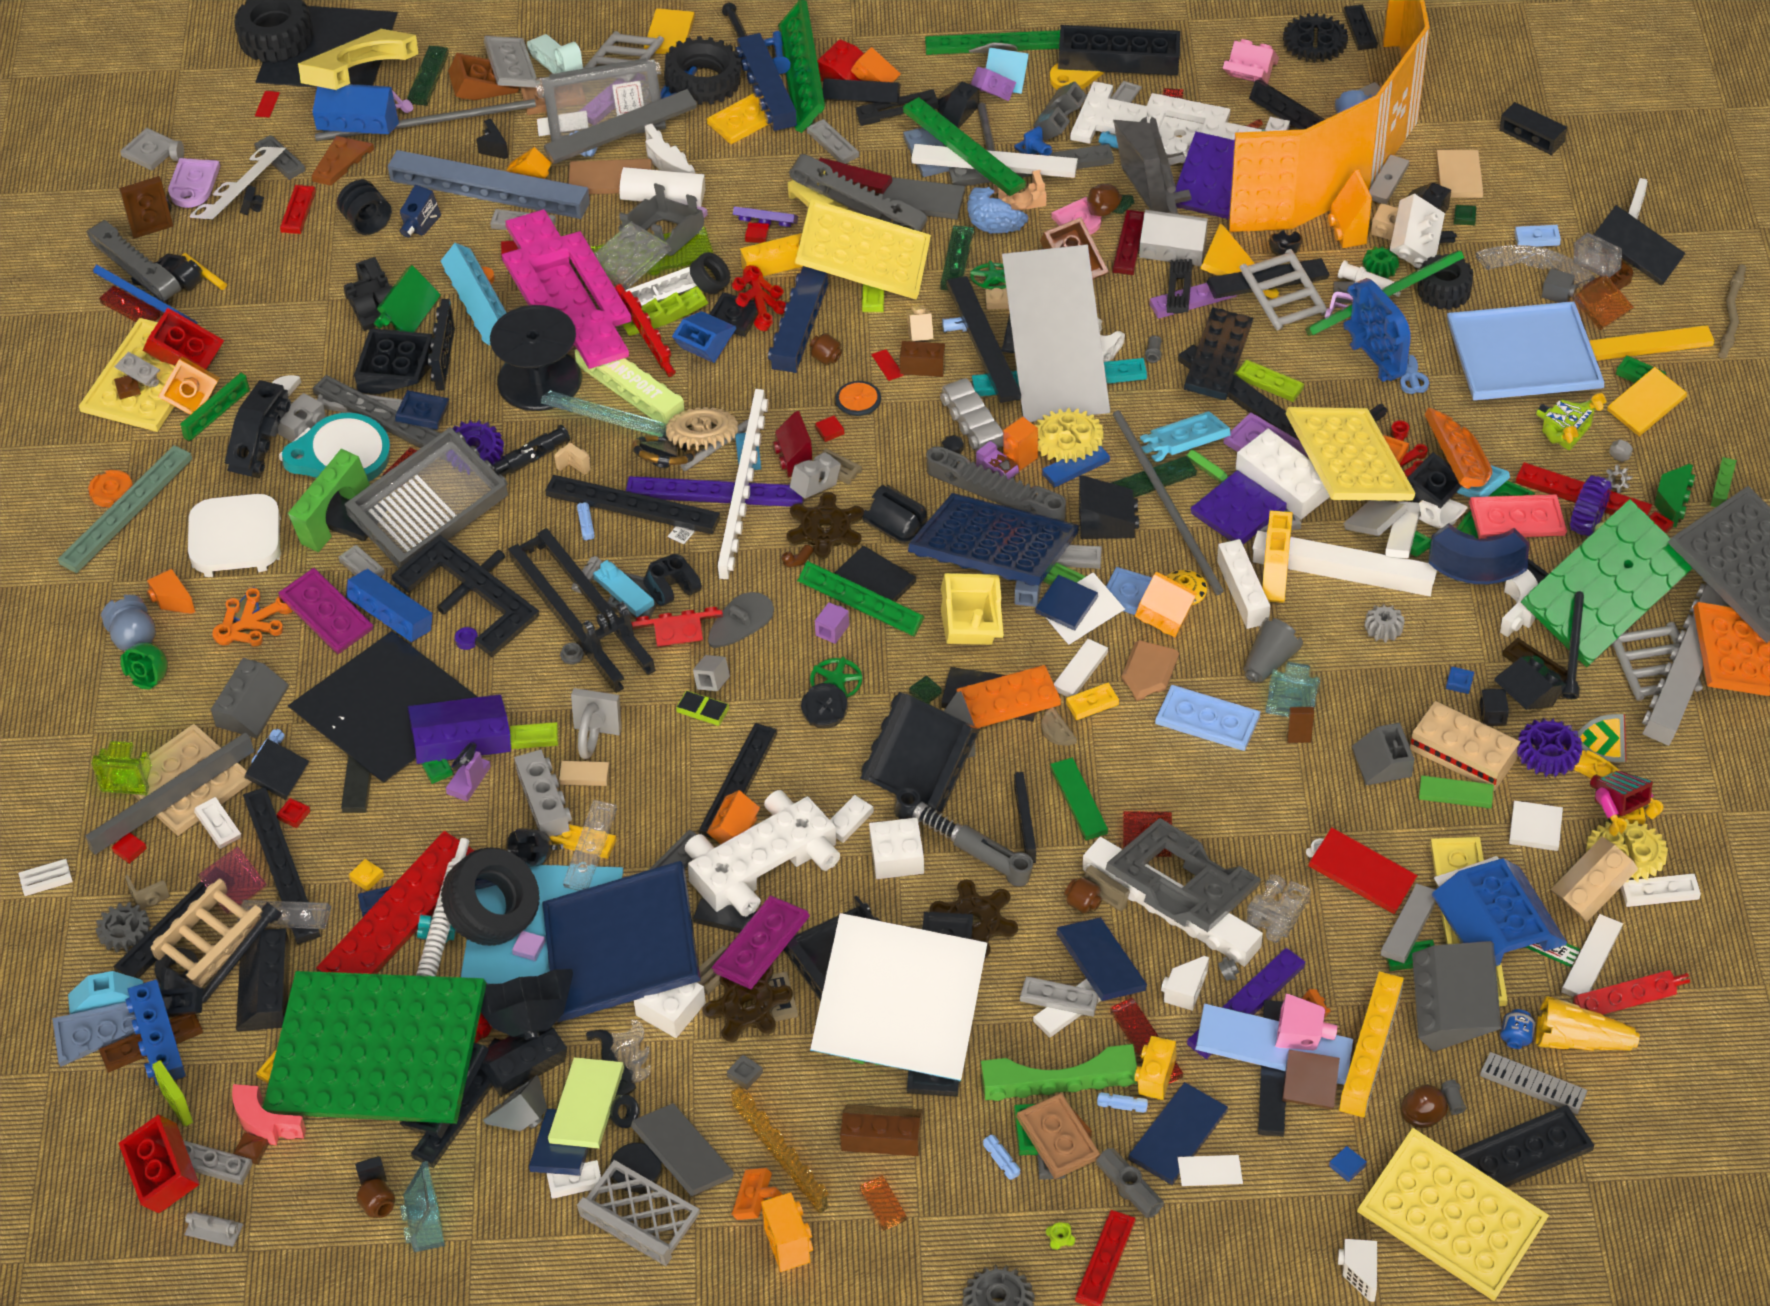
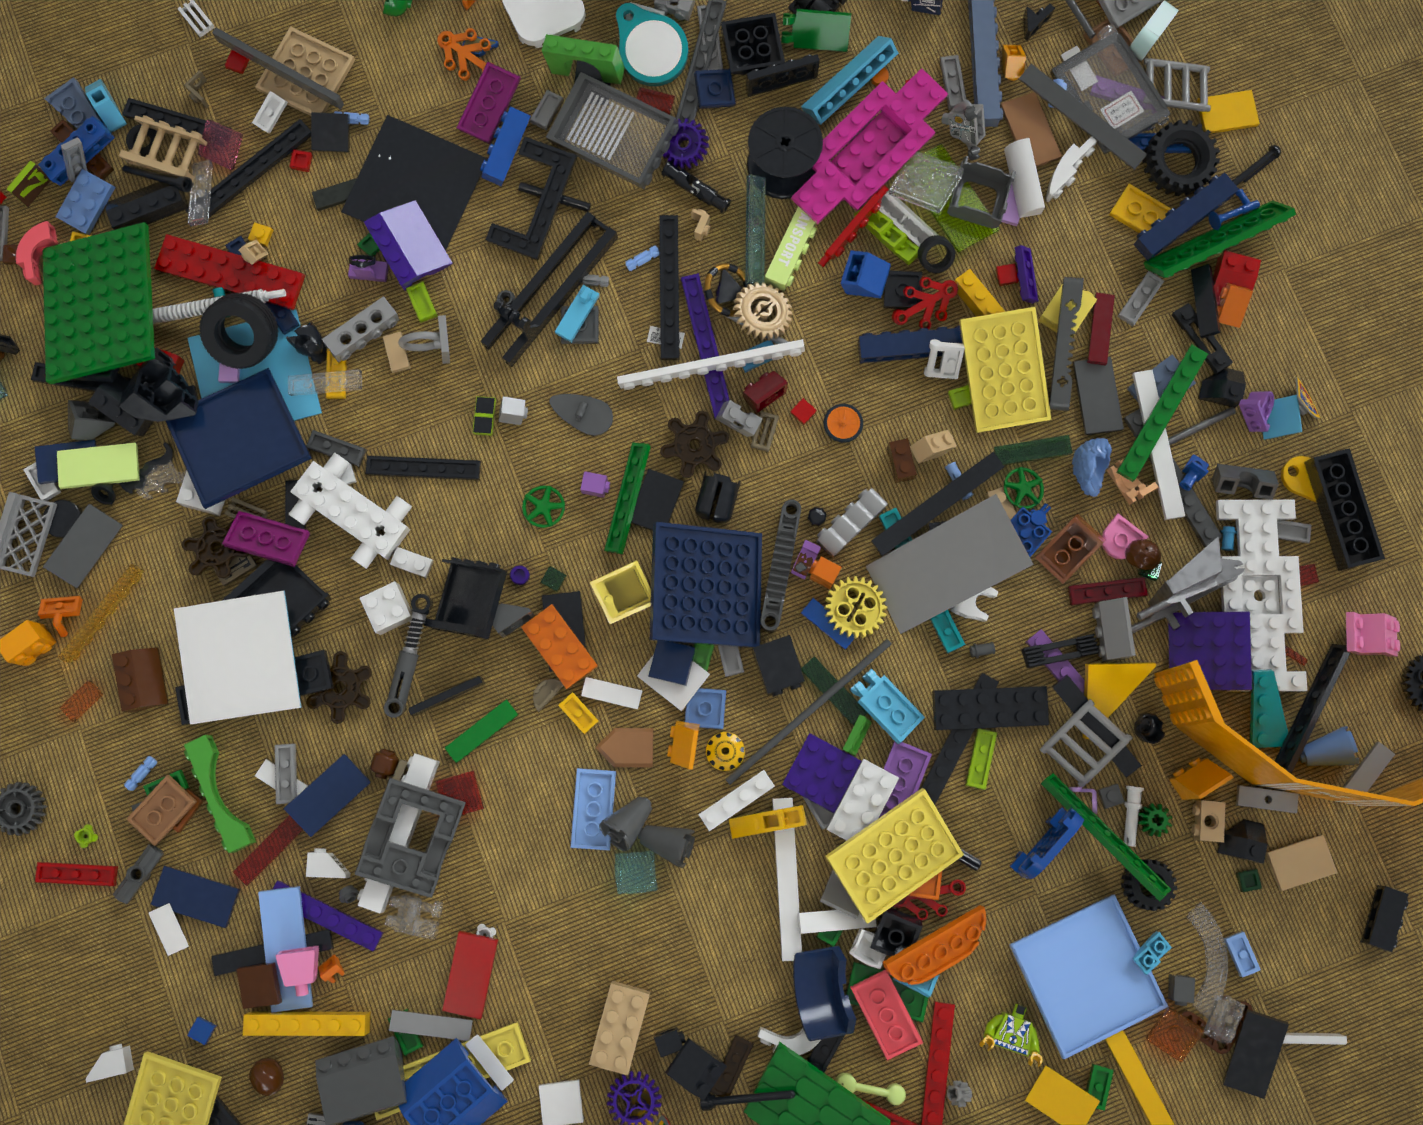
camera: 70 degrees right, 30 degrees up
(119, 772) = (280, 28): clear neon green panel -> none
(122, 927) = (164, 89): dark grey gear -> none
(174, 1023) = (73, 158): none -> light grey tile
(180, 994) = (110, 154): black wing -> none
(225, 1046) = (85, 202): none -> medium blue plate
(249, 698) = (389, 84): dark grey slope -> none
(392, 871) = (253, 252): none -> tan plate
(466, 638) = (499, 215): dark purple tile -> none
(580, 213) = (967, 125): none -> light grey torso
(669, 571) = (597, 342): black piece -> none
(678, 629) = (554, 368): bracket -> none
(733, 817) = (375, 478): orange brick -> none
(744, 1072) = (161, 566): dark grey plate -> none
(791, 560) = (654, 434): reddish brown arm -> none
(824, 705) = (511, 507): black tile -> none
(826, 349) = (886, 378): reddish brown head -> none
(832, 290) = (950, 360): none -> white plate
(887, 364) = (893, 433): red sticker -> none
(963, 43) = (1323, 397): green tile -> none
(1122, 1102) = (210, 847): light blue axle -> none
(1157, 1067) = (233, 867): yellow brick -> none
(1239, 681) = (626, 823): none -> dark grey cone
(1300, 724) = (594, 888): reddish brown tile -> none
(1384, 623) = (736, 934): light grey gear -> none
(1384, 755) = (588, 963): dark grey slope -> none
(1412, 376) = (1040, 879): medium blue piece -> none
(1418, 231) = (1195, 847): white piece -> none
(1454, 1099) = (280, 1097): dark grey pin -> none
(1456, 792) = (576, 1030): bright green tile -> none
(1460, 680) = (694, 1005): blue tile -> none
(1514, 298) = (1150, 952): none -> medium azure slope
(1590, 505) = (910, 1078): dark purple gear -> none
(1621, 450) = (995, 1088): light grey tile -> none

